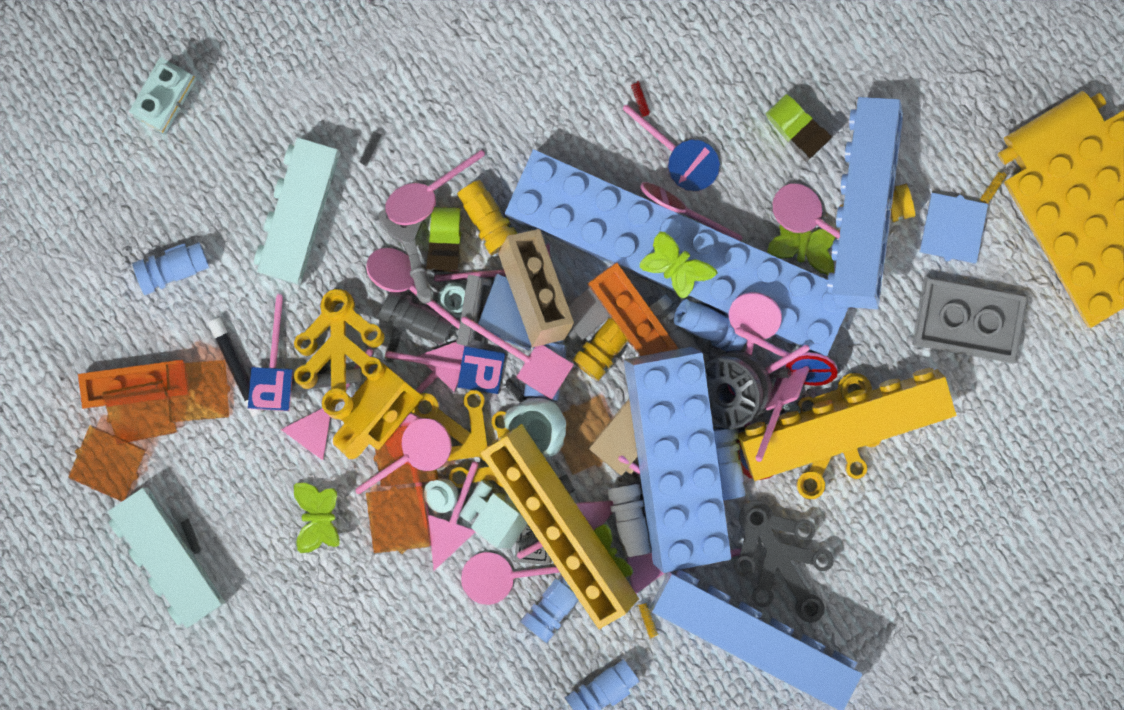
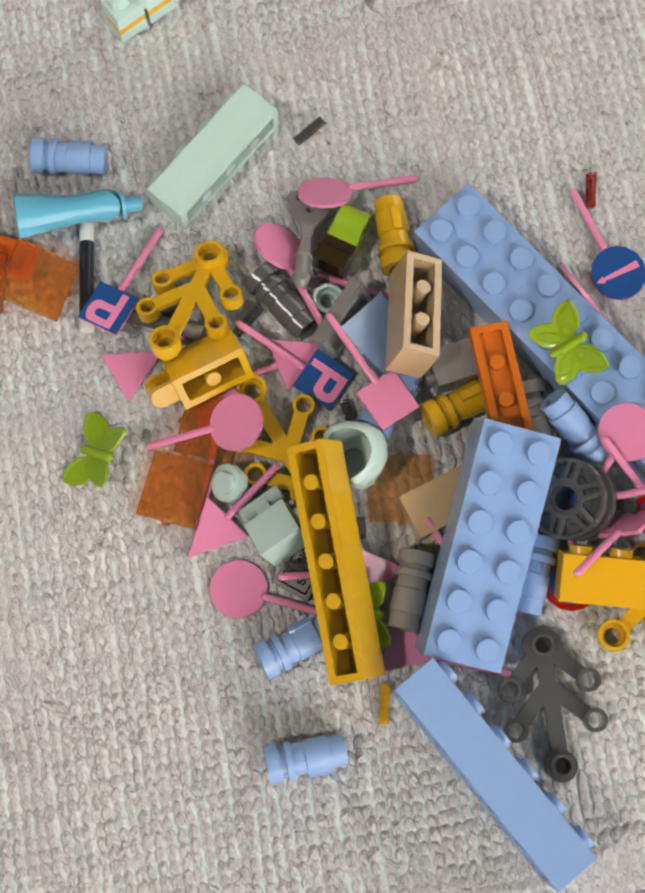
camera: 30 degrees right, 10 degrees down
(183, 325) = (49, 212): none -> medium azure piece

